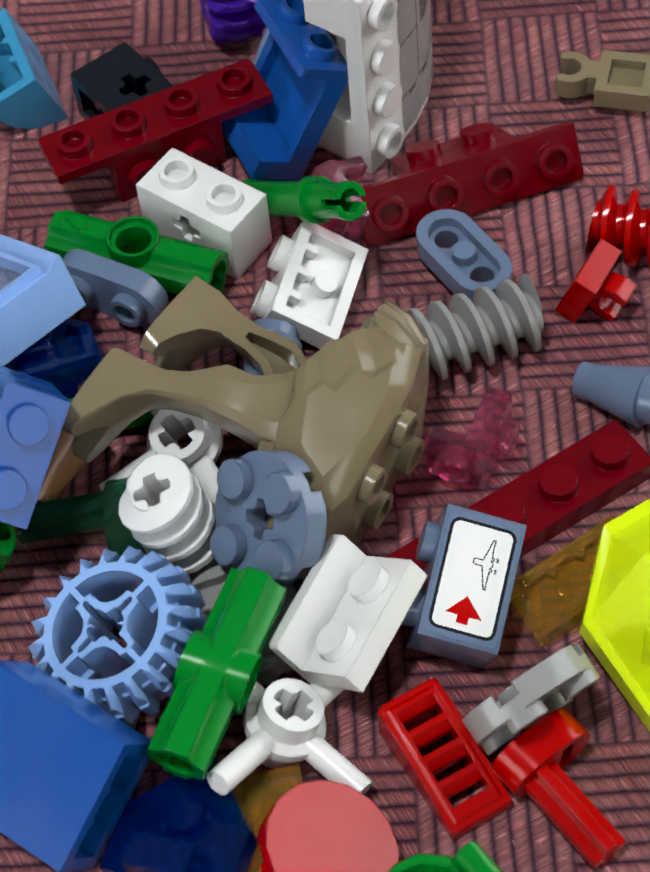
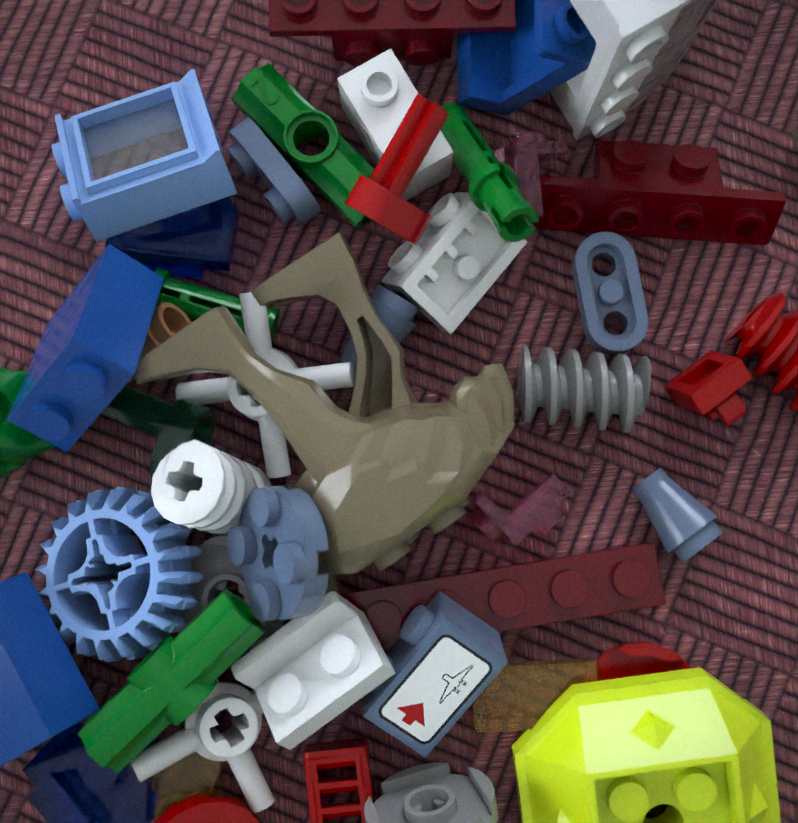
camera: 20 degrees right, 30 degrees up
(219, 242) = (382, 193): none -> red piece

